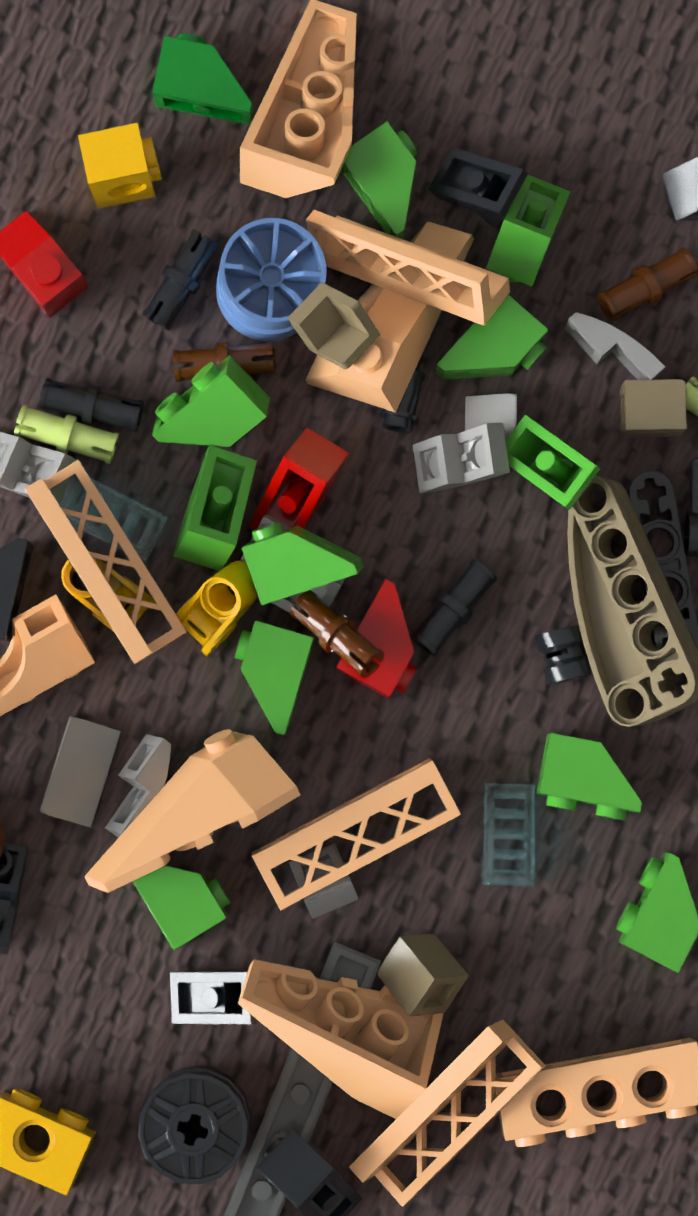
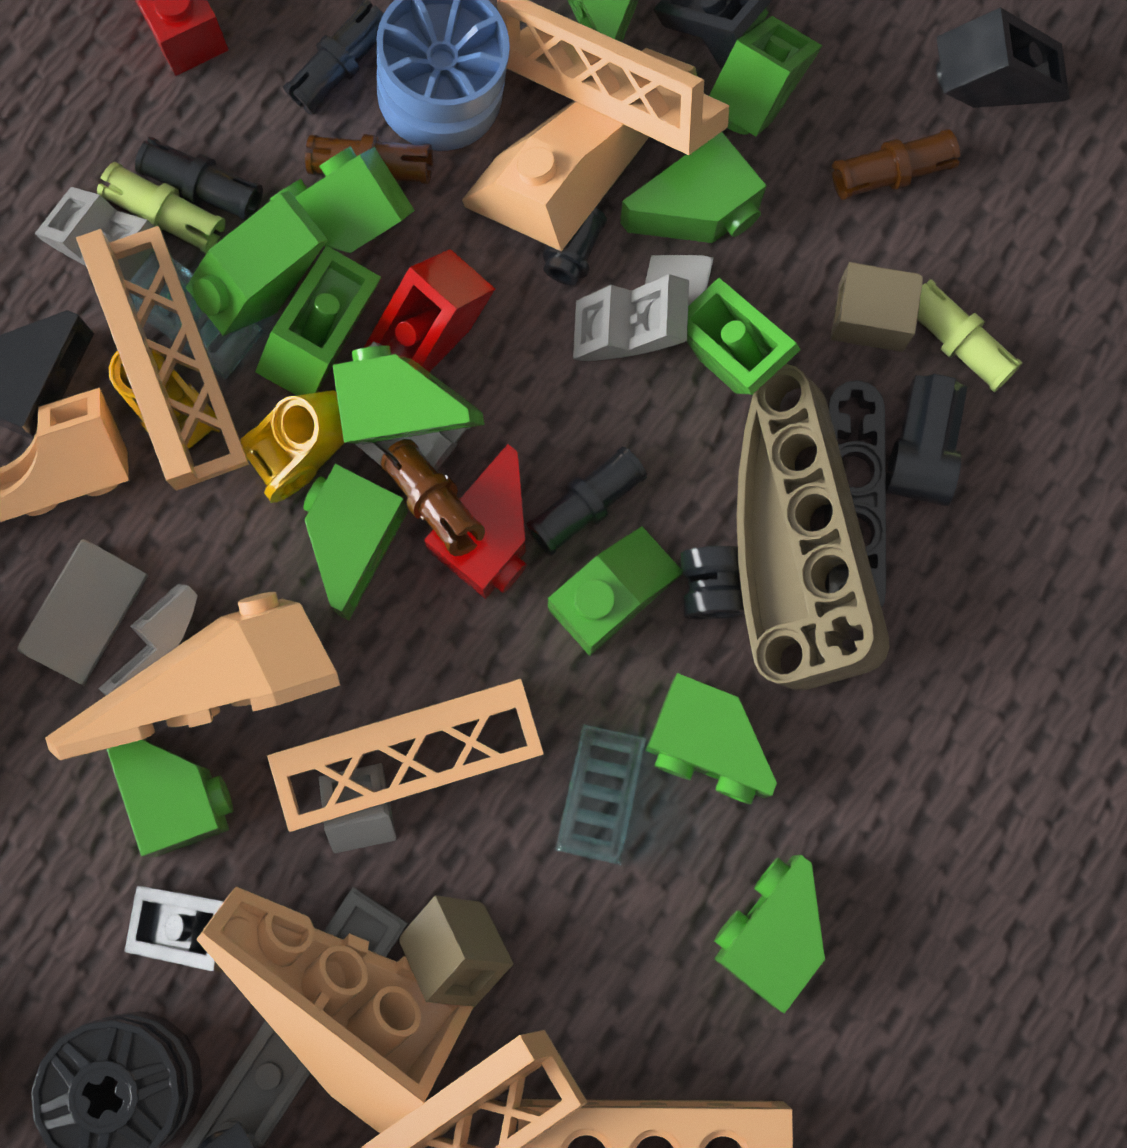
camera: 10 degrees right, 5 degrees down
(159, 473) = (256, 265): none -> bright green slope
(334, 326) = (503, 119): dark tan panel -> none
(489, 673) = (613, 589): none -> bright green slope
(601, 339) = (832, 216): light grey slope -> none

